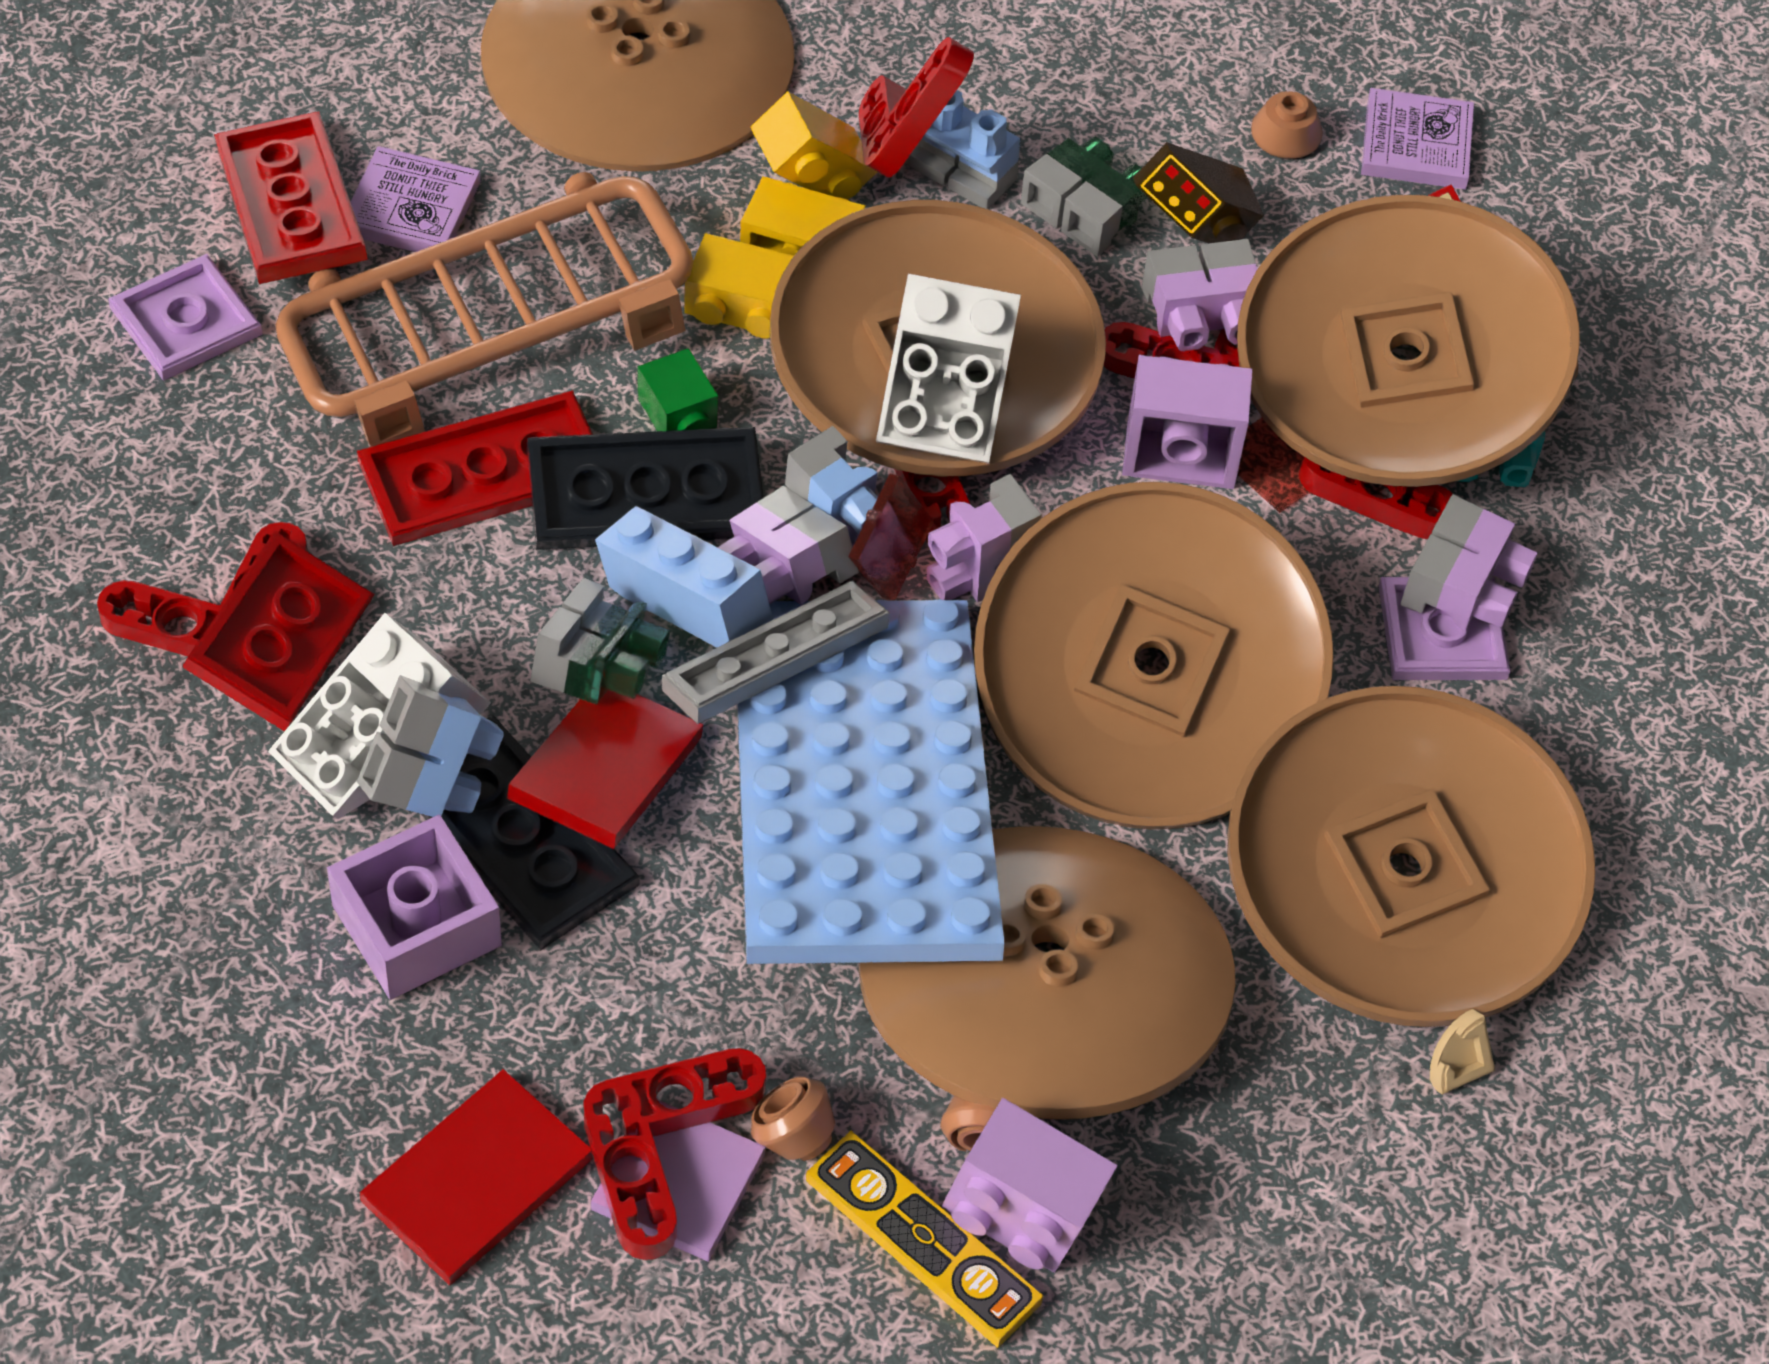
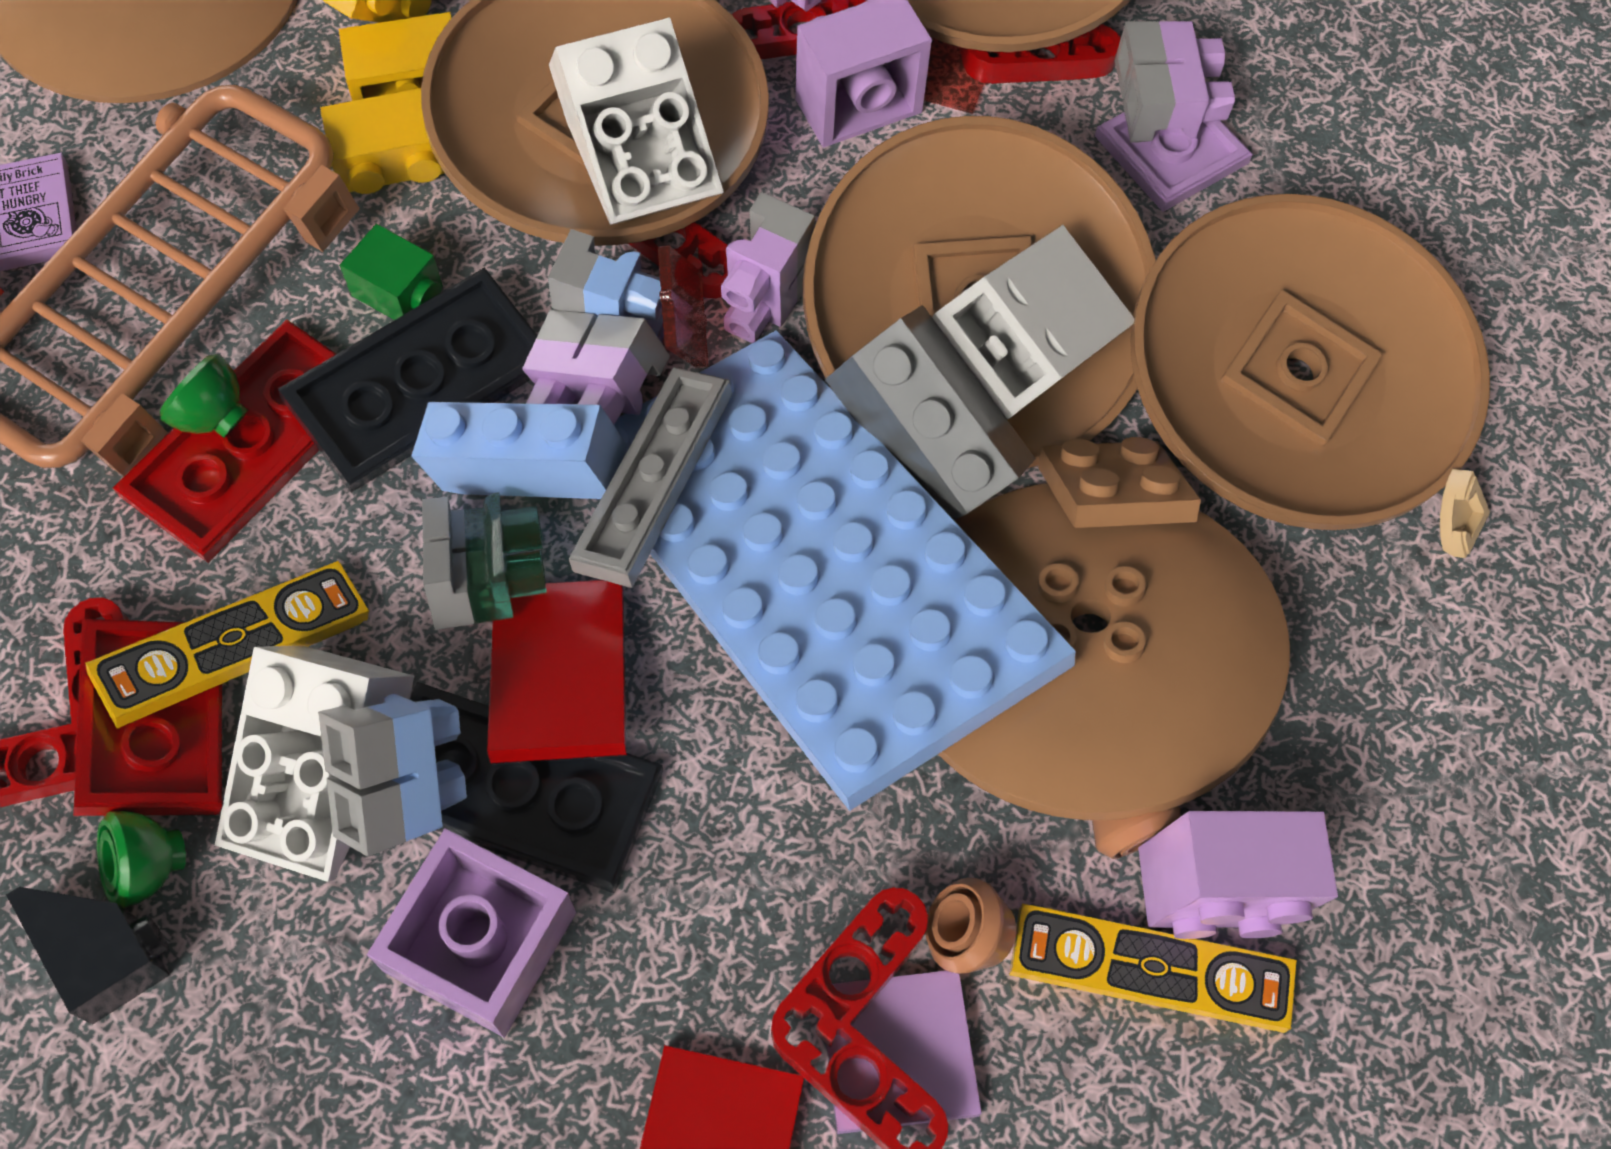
camera: 30 degrees left, 10 degrees up
(138, 769) = (91, 949): none -> black slope
(208, 723) = (136, 856): none -> green brick
(356, 602) = (222, 643): none -> tile
(467, 417) = (206, 399): none -> green brick
(1031, 719) = (932, 414): none -> slope
(1162, 862) = (1117, 483): none -> medium nougat plate
(1168, 692) = (1033, 320): none -> white slope

